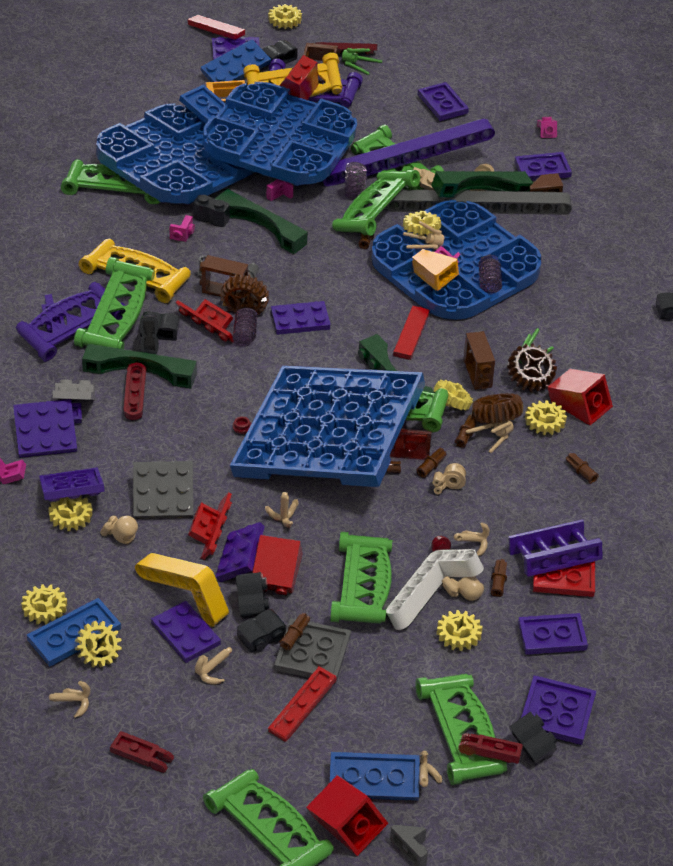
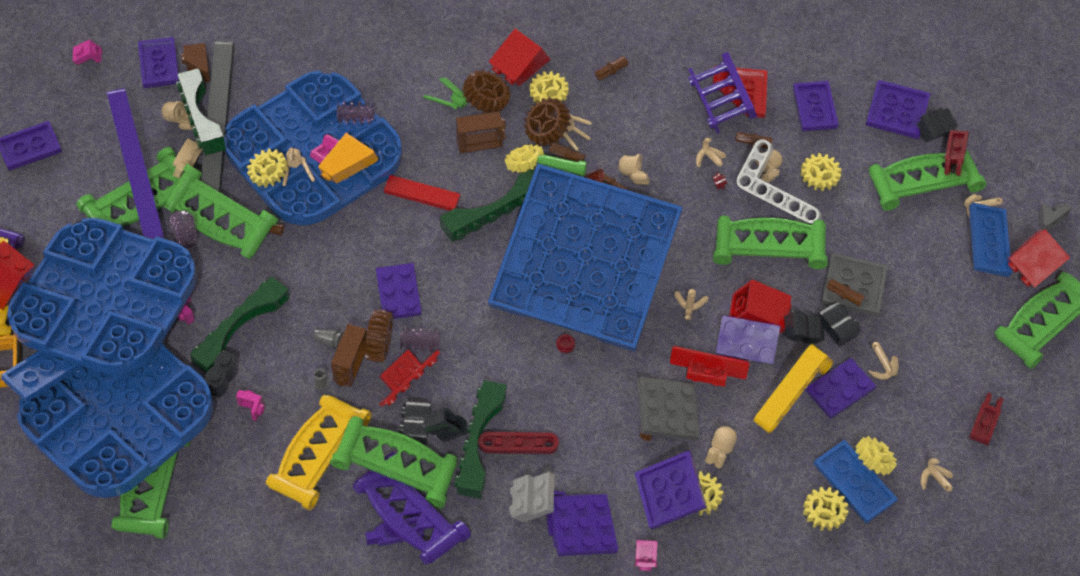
camera: 90 degrees left, 15 degrees up
(302, 704) = (918, 292): red tile -> none

